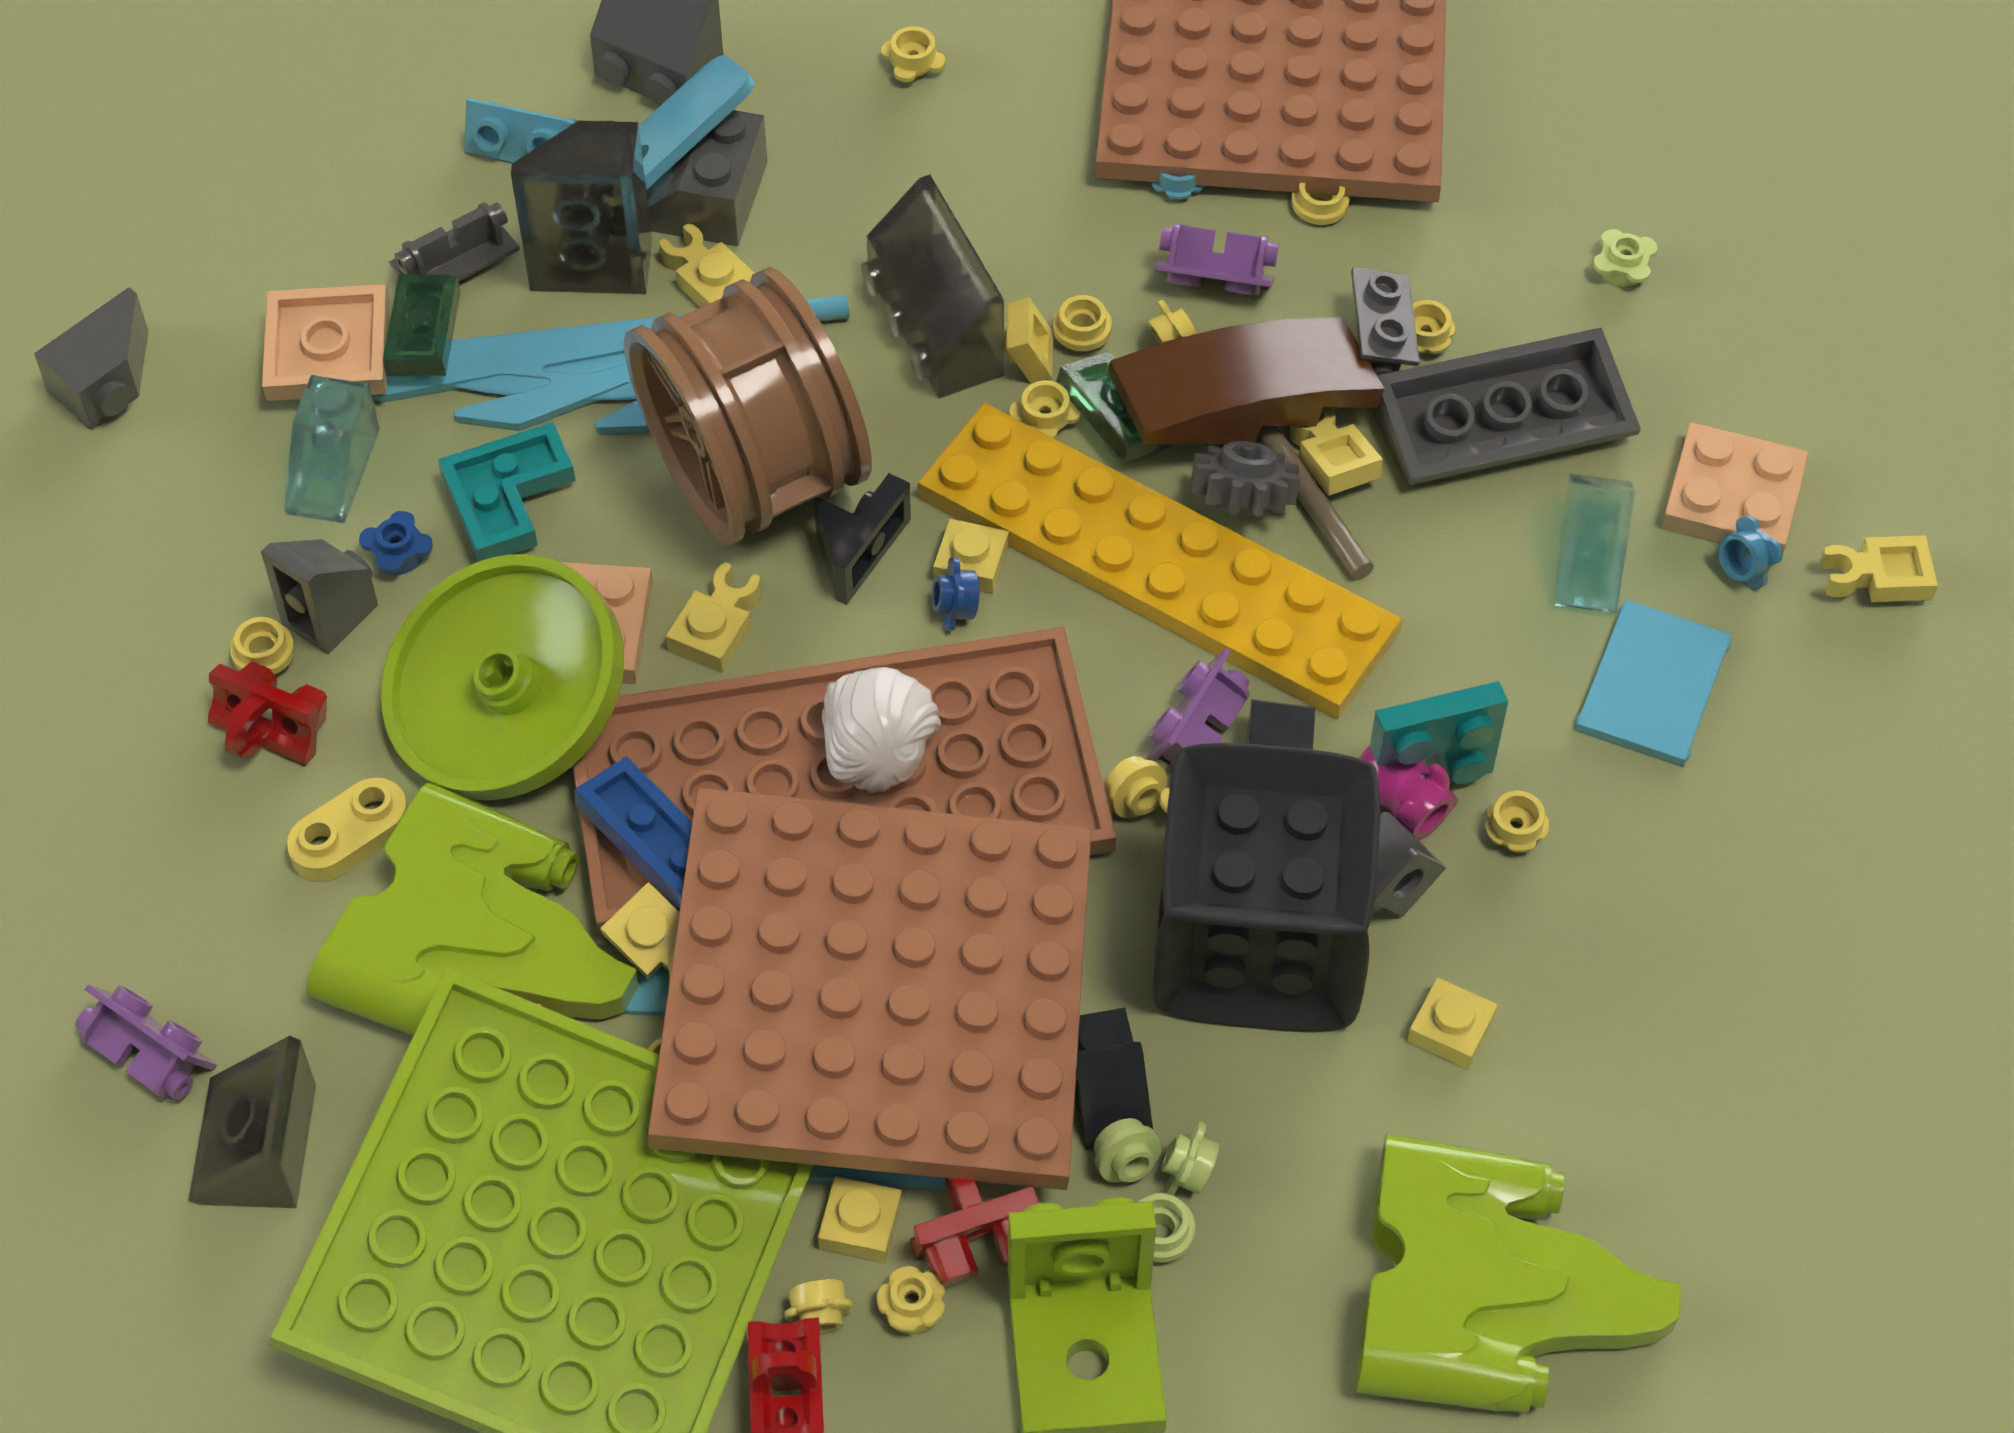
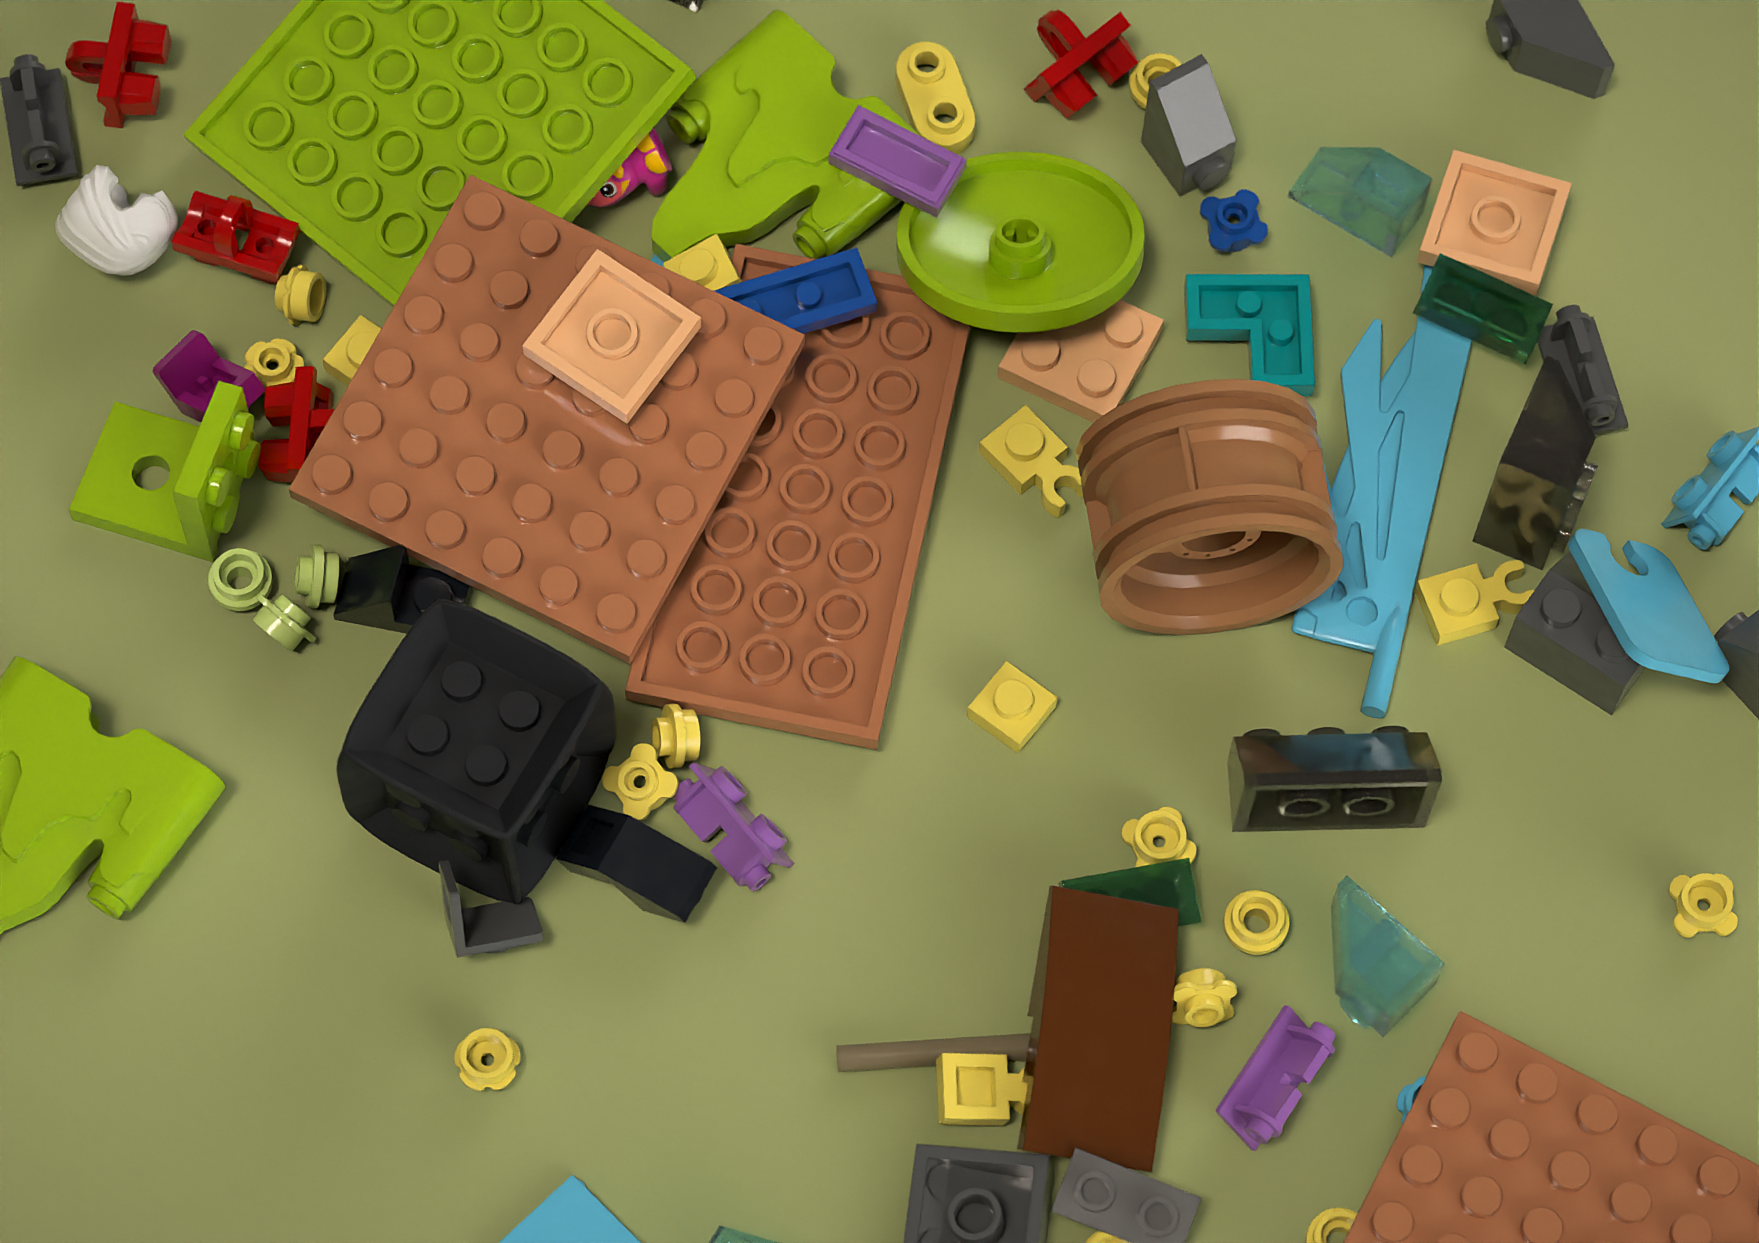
camera: 110 degrees right, 10 degrees up
(457, 797) = (897, 161): none -> medium lavender tile
(787, 920) = (612, 336): none -> light nougat plate
(859, 540) = (1057, 594): black slope -> none
(877, 727) = (807, 510): white hair -> none
(956, 594) = (962, 665): blue plate -> none
(968, 1337) = (192, 373): none -> magenta bracket
(1029, 340) = (1245, 852): light yellow plate -> none
(1079, 231) = (1376, 961): none -> clear light blue slope
(1162, 559) = (934, 876): yellow plate -> none
(1245, 479) = (990, 1001): dark grey gear -> none
(1414, 793) = (571, 968): dark pink animal -> none
(1449, 729) = (574, 1015): teal plate -> none
(1452, 1023) = (314, 906): light yellow plate -> none

